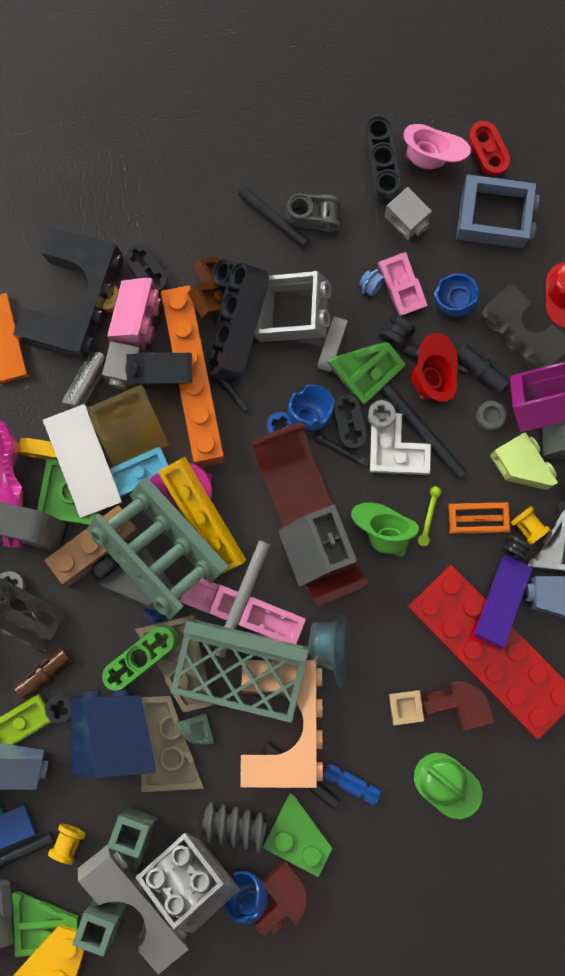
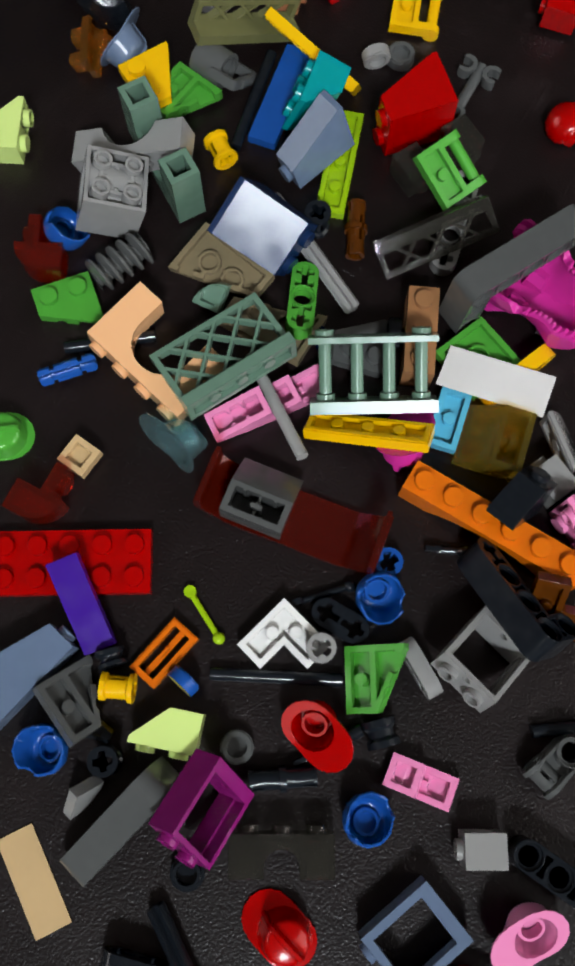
camera: 130 degrees right, 5 degrees down
(98, 662) = (330, 277): none -> light grey axle
(371, 282) = (445, 755): medium blue plate -> none
(386, 528) = (229, 566): bright green piece -> none
(485, 486) = (183, 681): none -> blue tile

